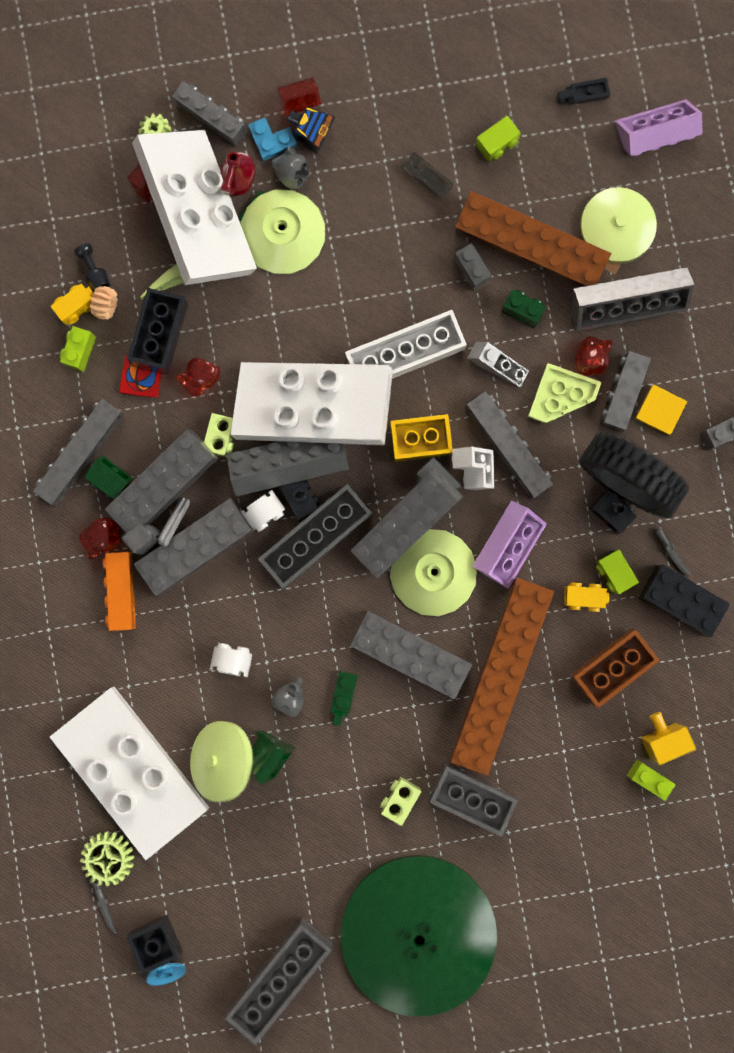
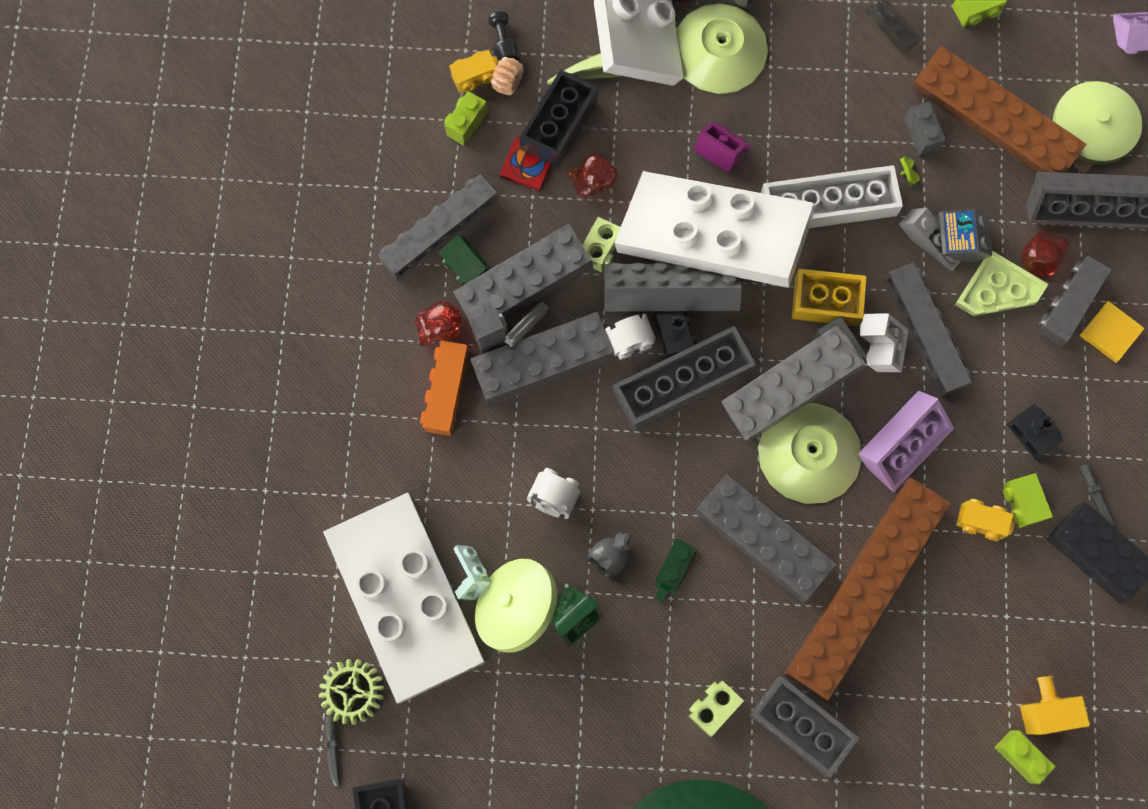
camera: 15 degrees right, 10 degrees down
(181, 738) = (477, 574): none -> light aqua bracket
(303, 323) = (721, 146): none -> magenta brick
(470, 311) = (912, 176): none -> lime piece
(523, 308) = (973, 185): dark green brick -> none
(524, 356) = (965, 235): none -> slope
(614, 668) = (1005, 610): dark orange brick -> none
(634, 474) = (1073, 385): black tyre -> none

